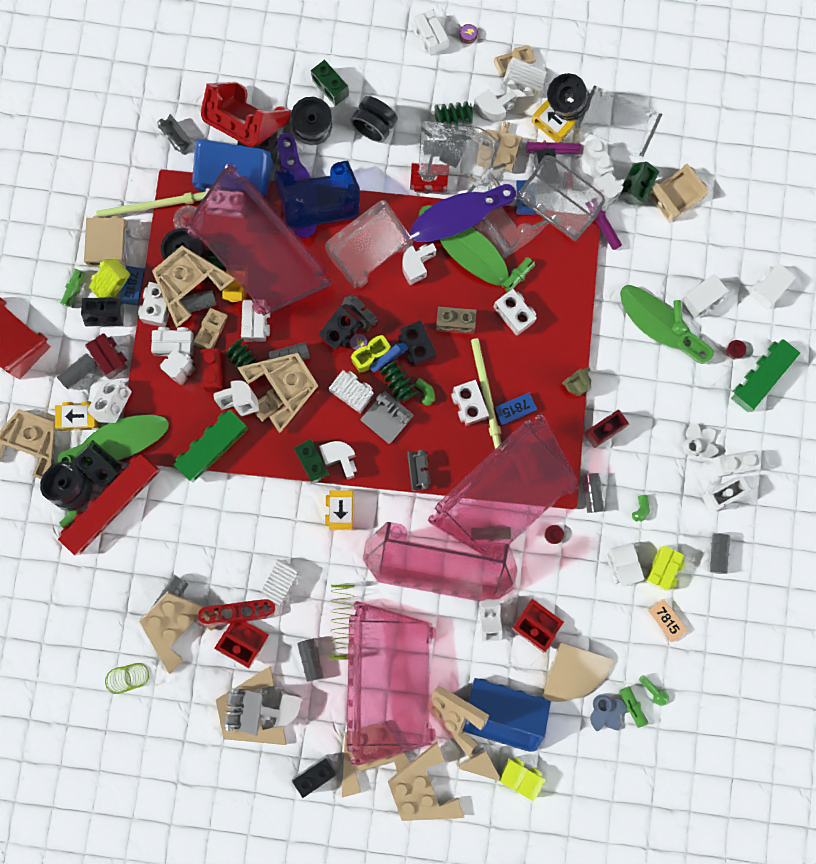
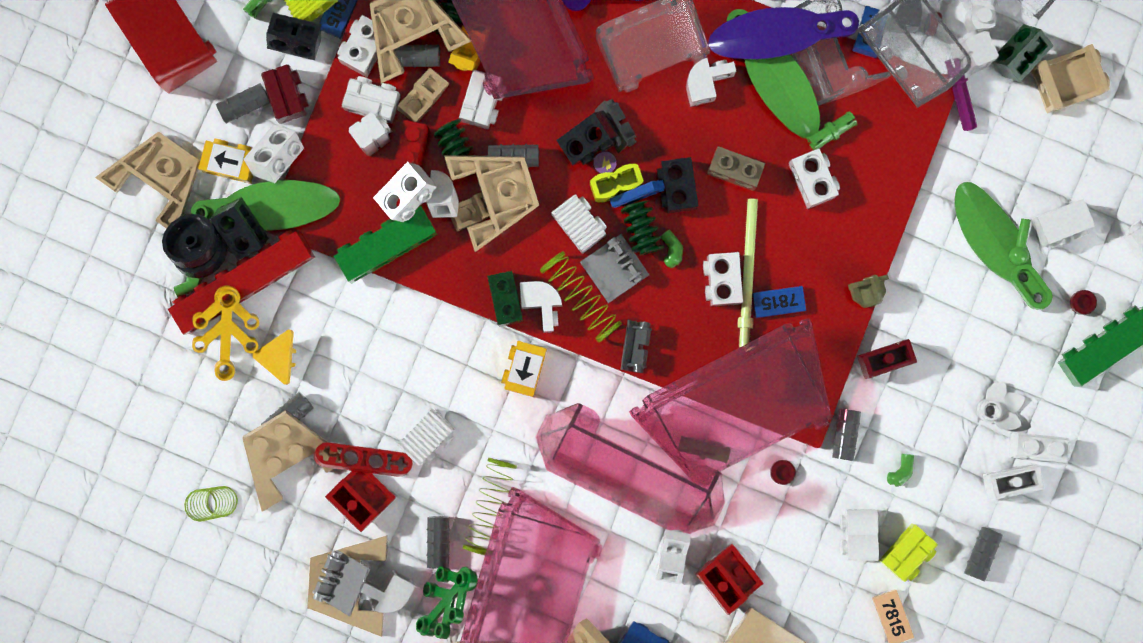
camera: 20 degrees right, 5 degrees up
(105, 542) = (225, 328): none -> yellow plant
(151, 552) = (277, 356): none -> yellow piece
(211, 399) = (402, 187): none -> white brick
(338, 683) = (464, 581): none -> green plant
(339, 425) = (553, 261): none -> lime piece

